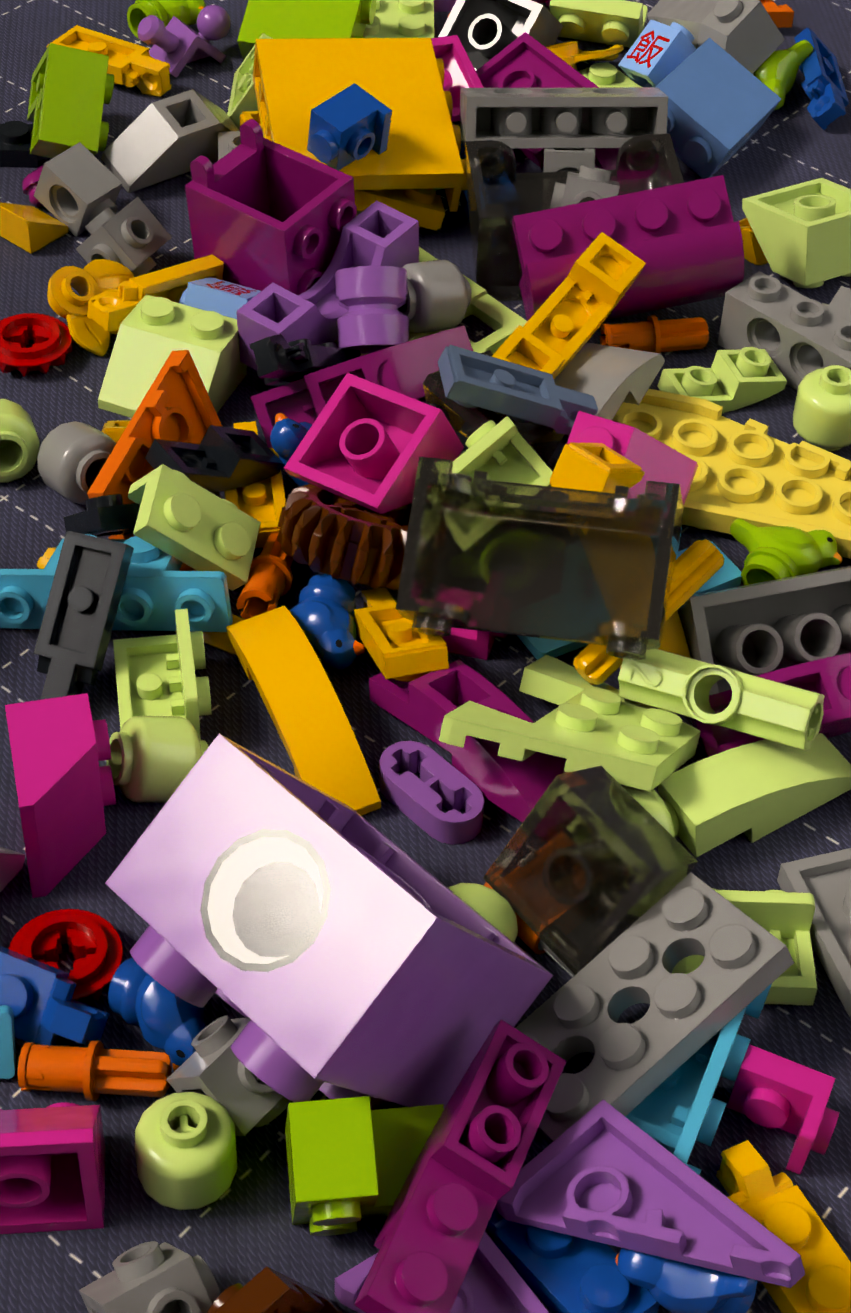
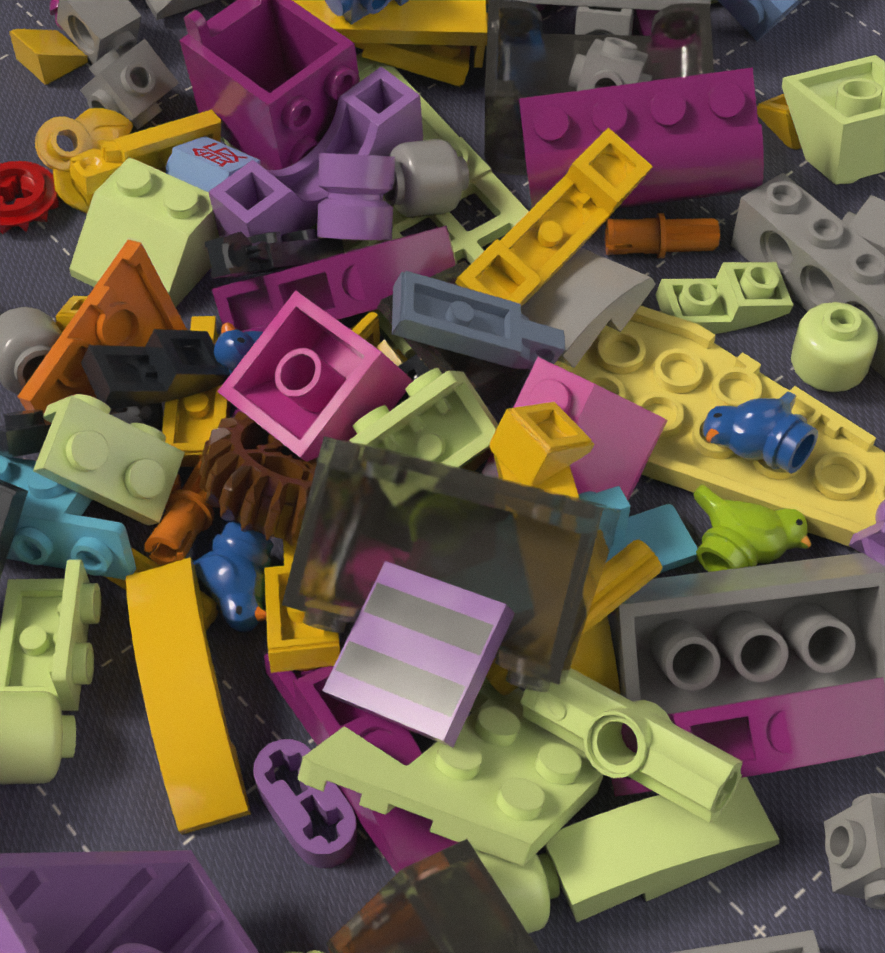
camera: 10 degrees right, 10 degrees up
(525, 636) = (419, 653): none -> tile
(784, 470) = (763, 431): none -> blue animal

